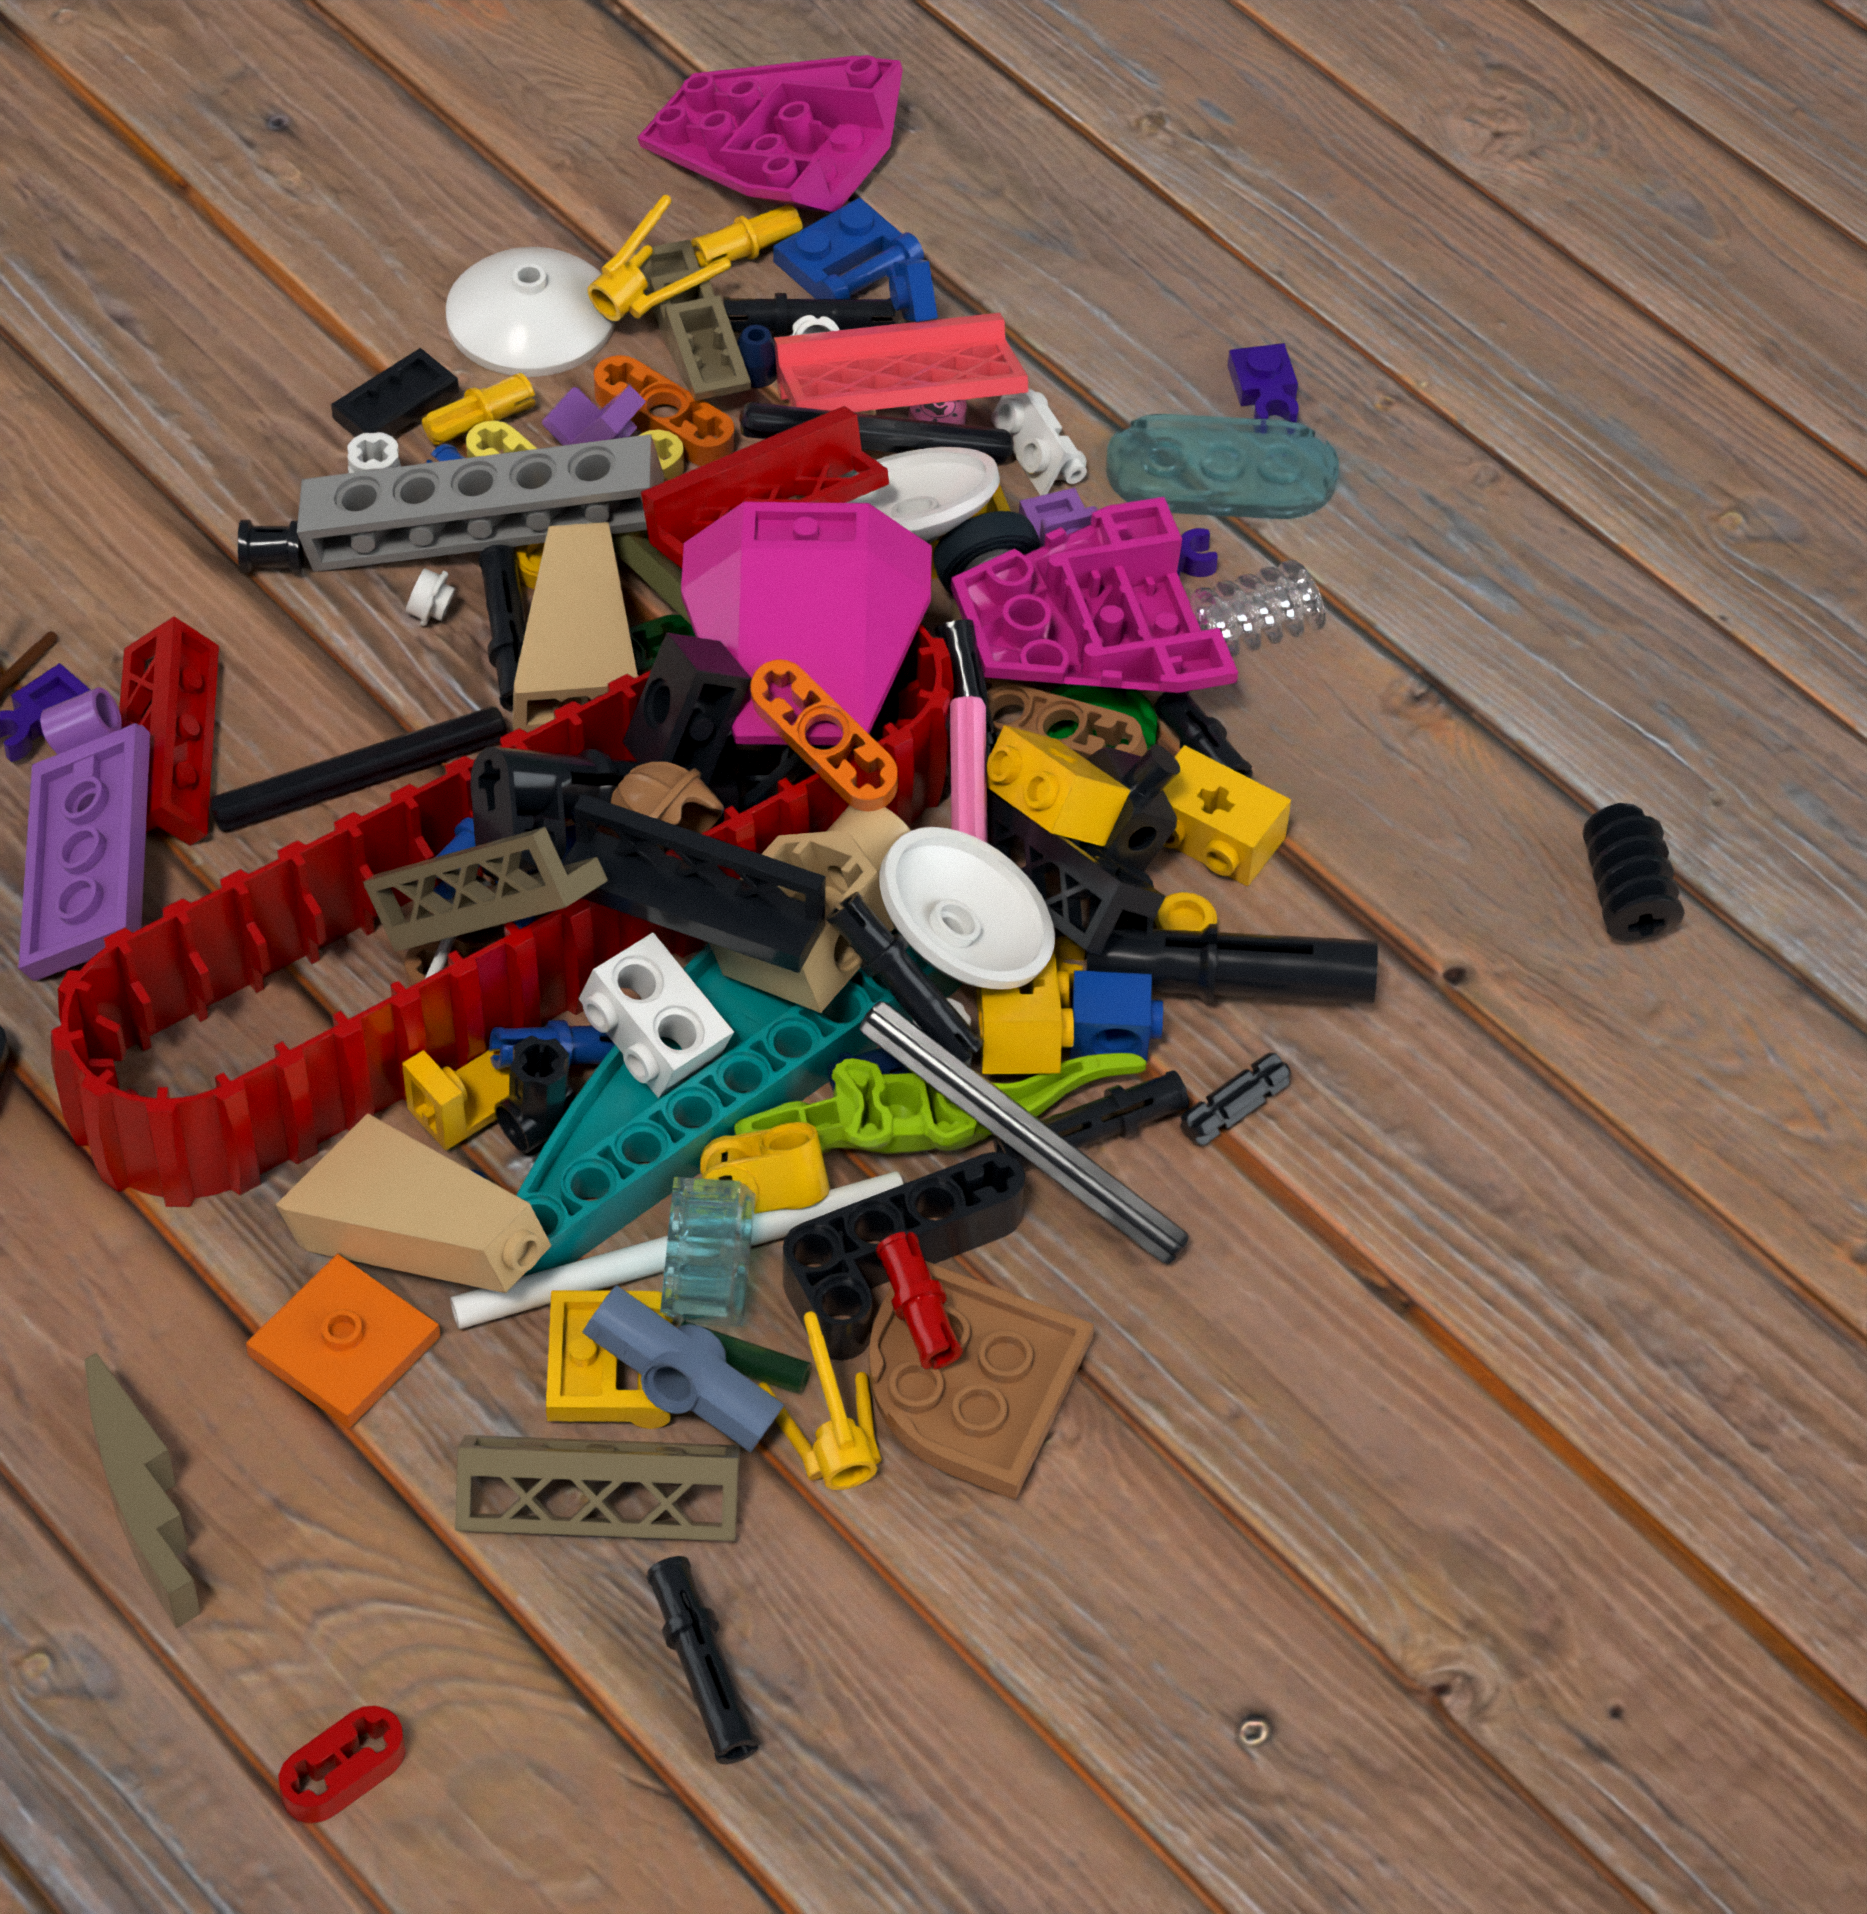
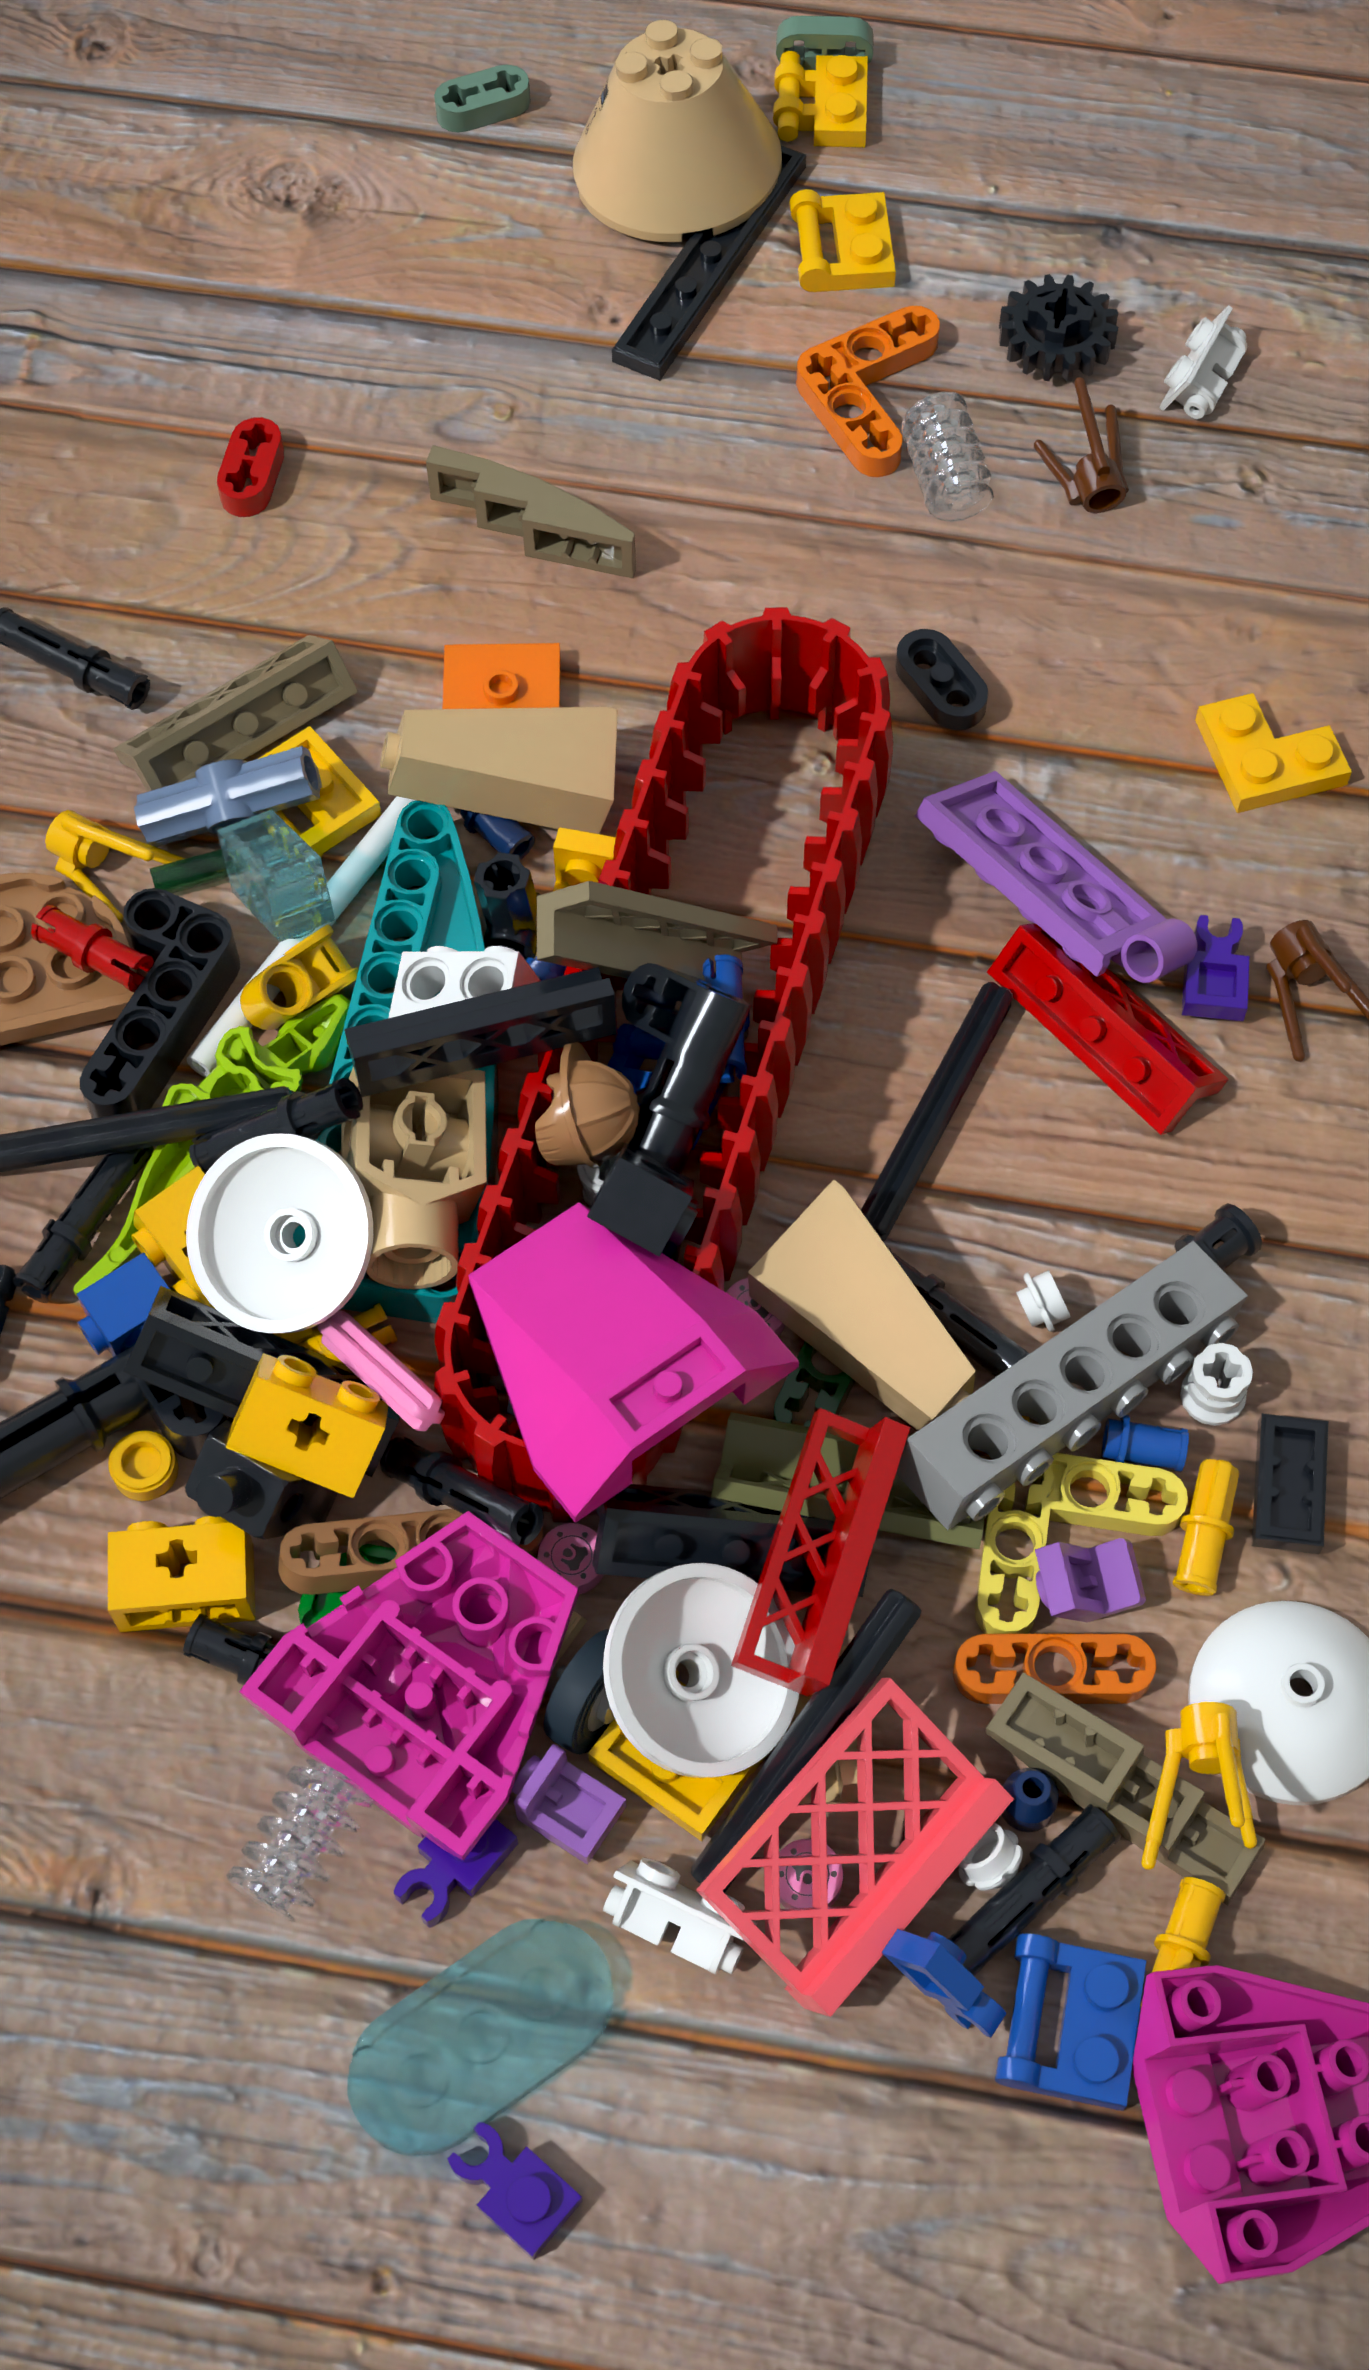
camera: 145 degrees right, 10 degrees up
(780, 714) = (448, 1234): orange beam -> none

